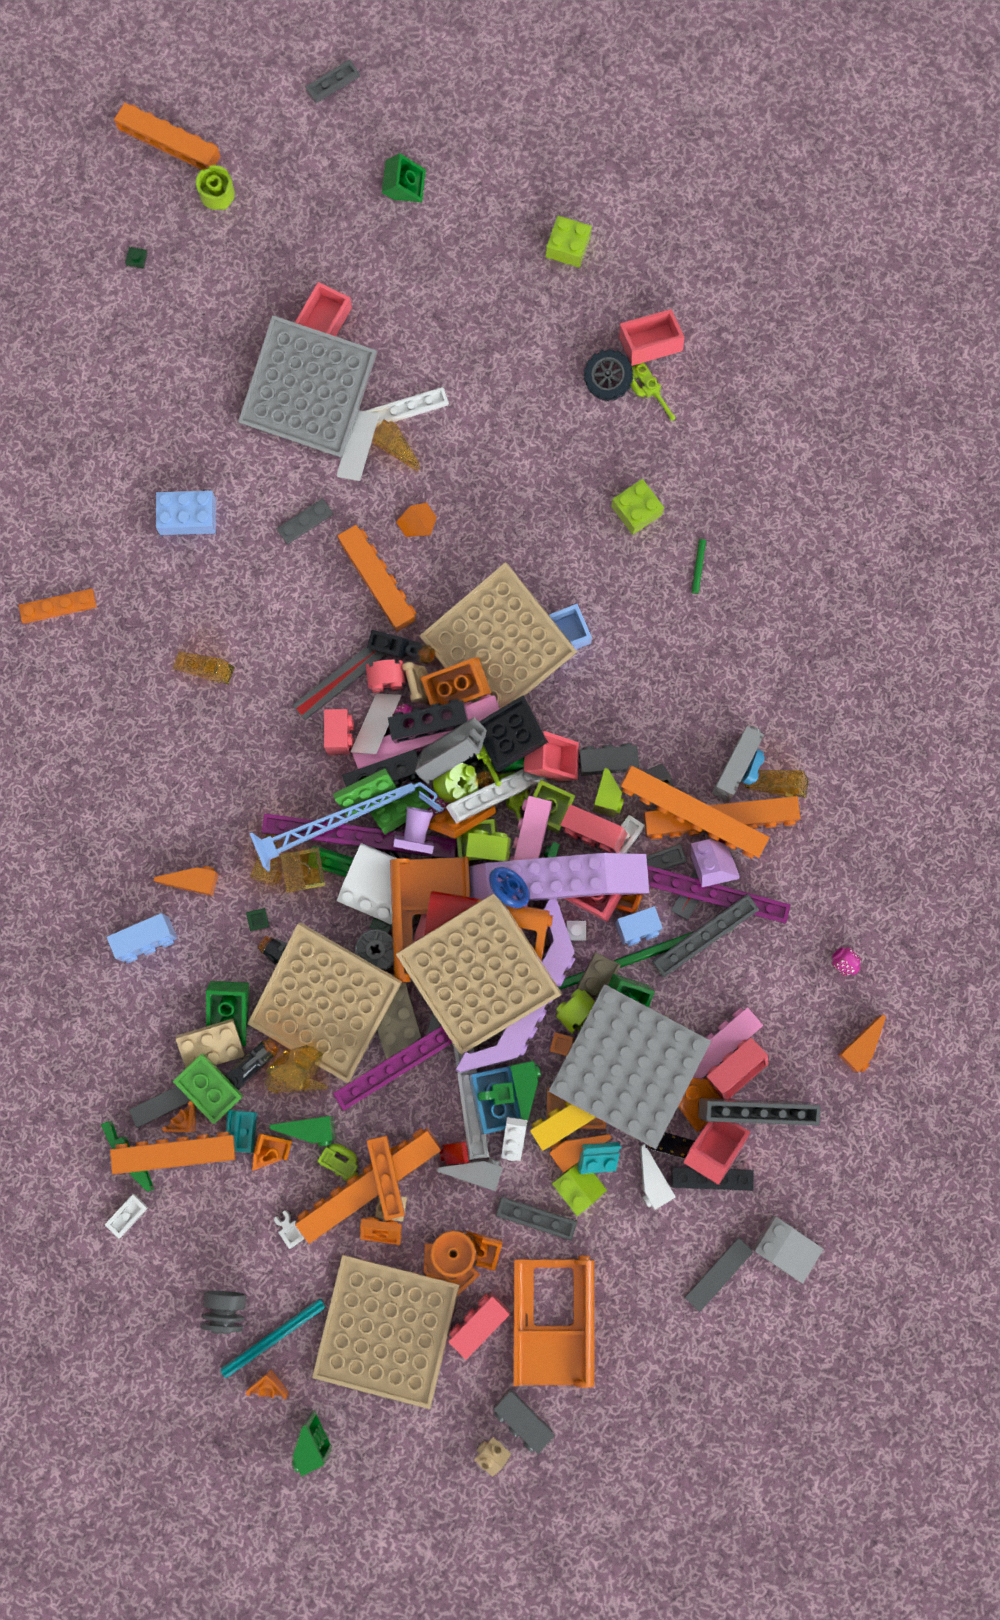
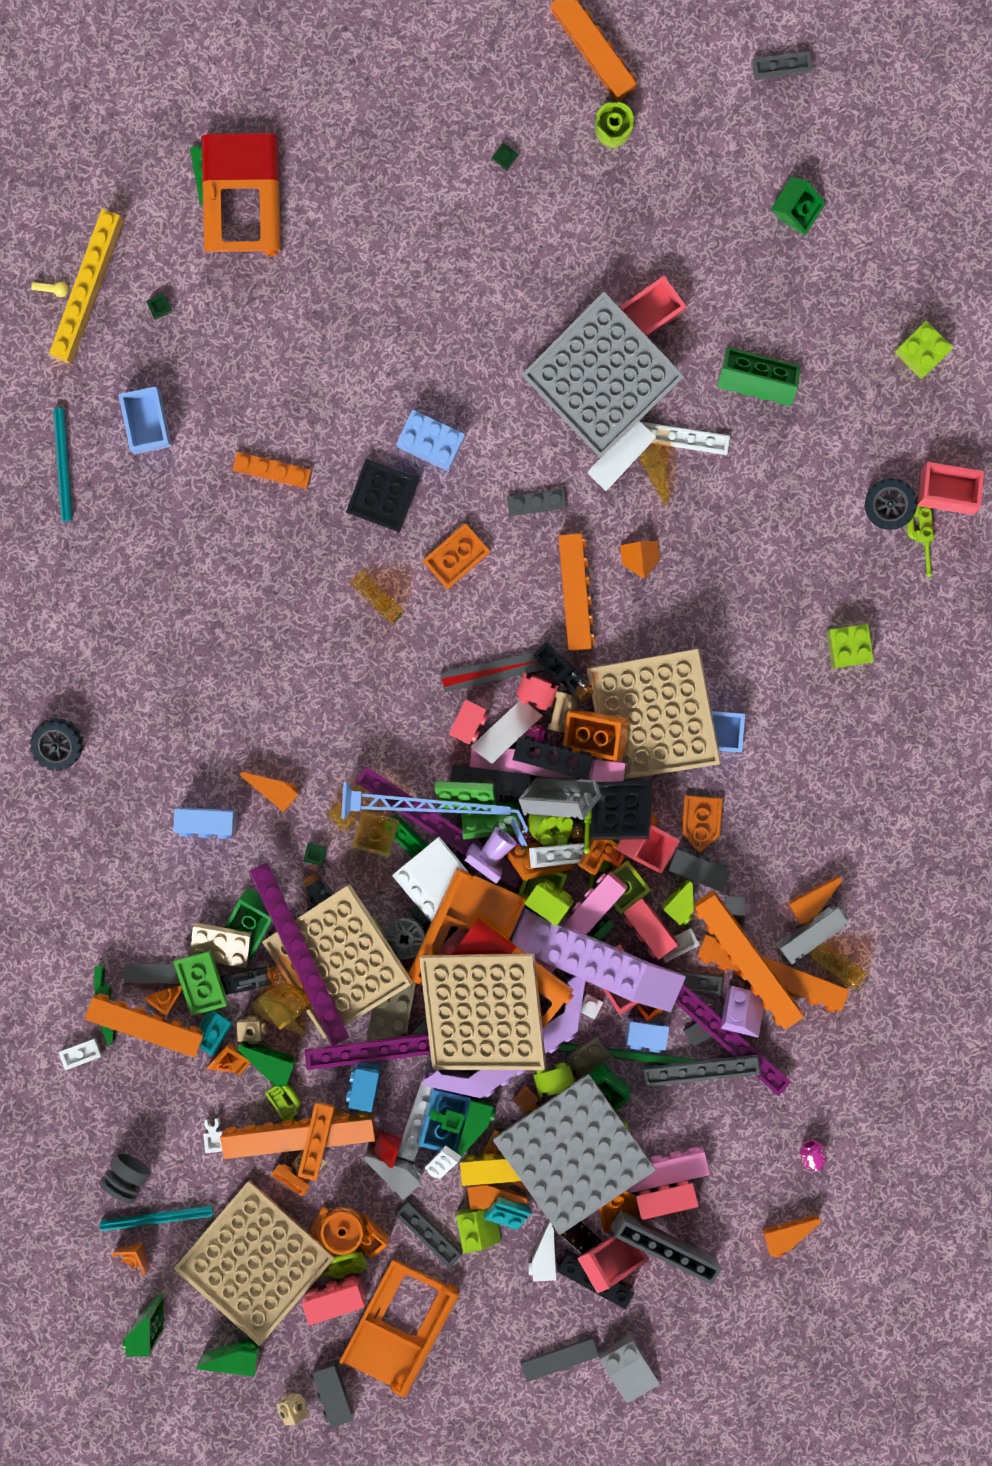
camera: 30 degrees right, 10 degrees up
(166, 579) = (382, 495): none -> black plate
(257, 599) = (456, 556): none -> orange plate
(270, 1112) = (251, 1029): none -> tan brick
(285, 1012) = (299, 954): none -> magenta plate
(405, 1103) = (364, 1086): none -> dark azure brick
(416, 1431) = (235, 1358): none -> green slope
(442, 328) = (759, 376): none -> green slope
(471, 1294) = (345, 1264): none -> lime piece
(509, 887) = (547, 955): blue plate -> none
(511, 782) = (600, 851): none -> orange plate
(589, 717) = (701, 820): none -> orange tile
(698, 566) = (876, 729): green bar -> none
(722, 741) = (811, 903): none -> orange slope
(751, 774) = (821, 949): dark azure plate -> none

